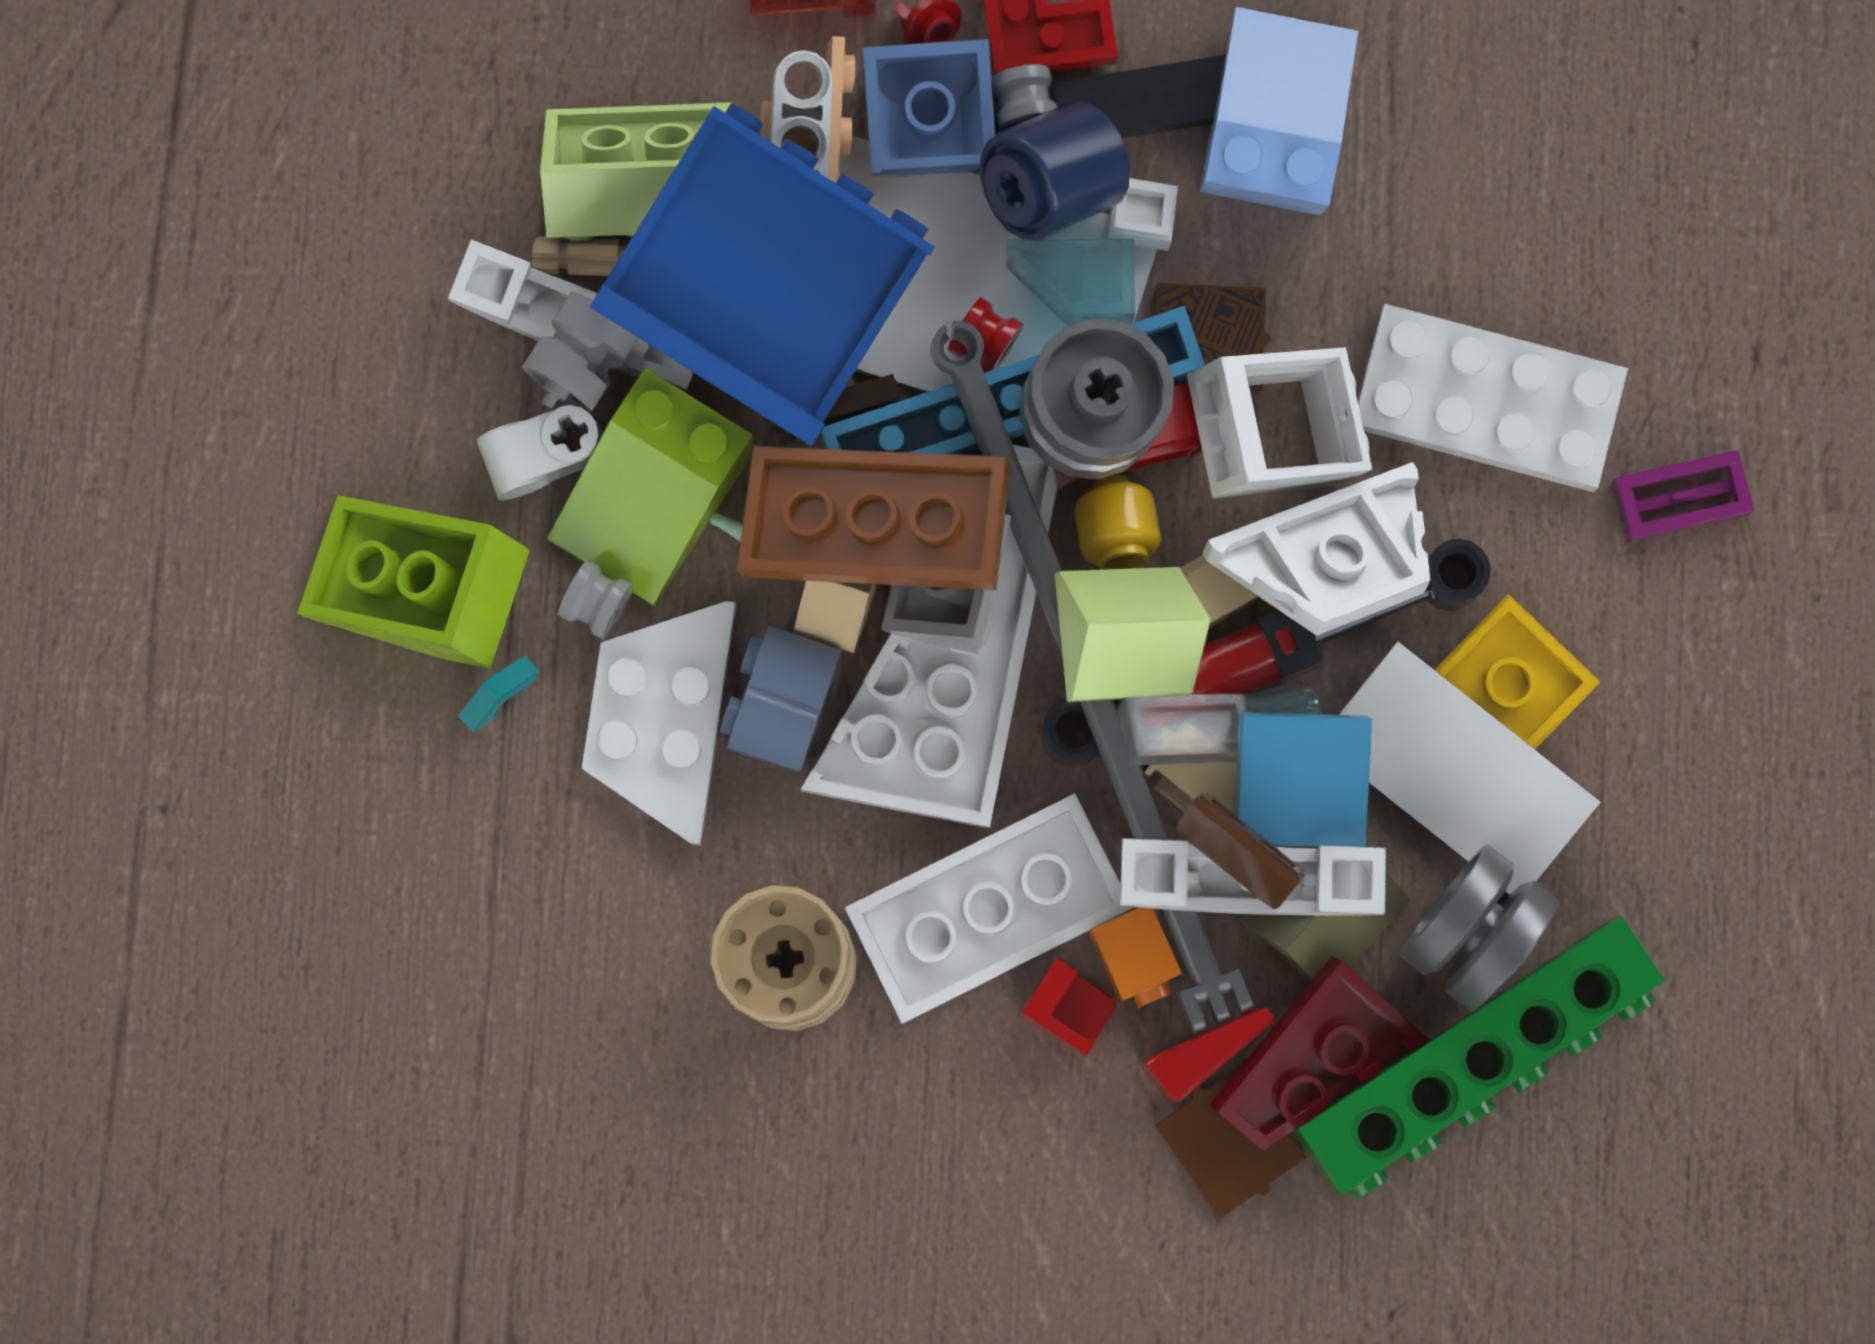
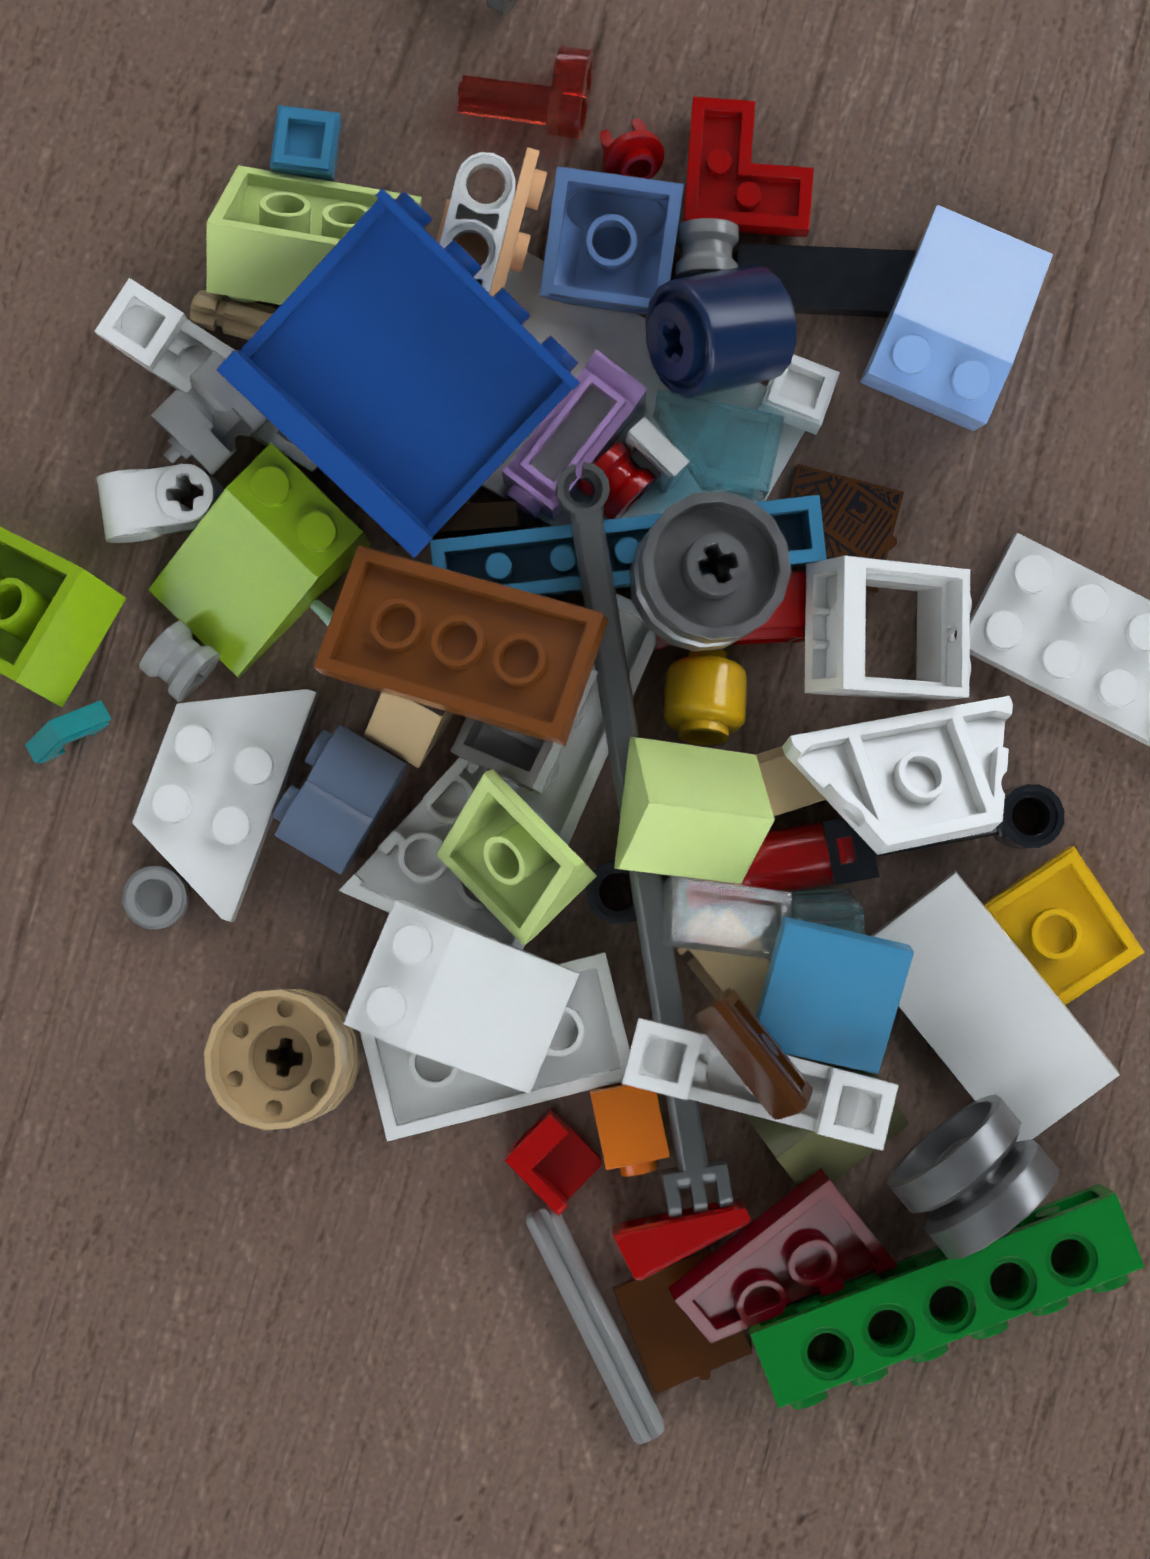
camera: 15 degrees right, 5 degrees up
(608, 74) = (306, 142): none -> dark azure tile
(619, 837) = (156, 897): none -> light grey tile
(935, 297) = (575, 433): none -> lavender window
(946, 861) = (461, 997): none -> white slope
(967, 715) = (512, 859): none -> yellowish green slope
(1018, 300) = (655, 452): none -> white tile
(1145, 1161) = (595, 1324): none -> light grey axle

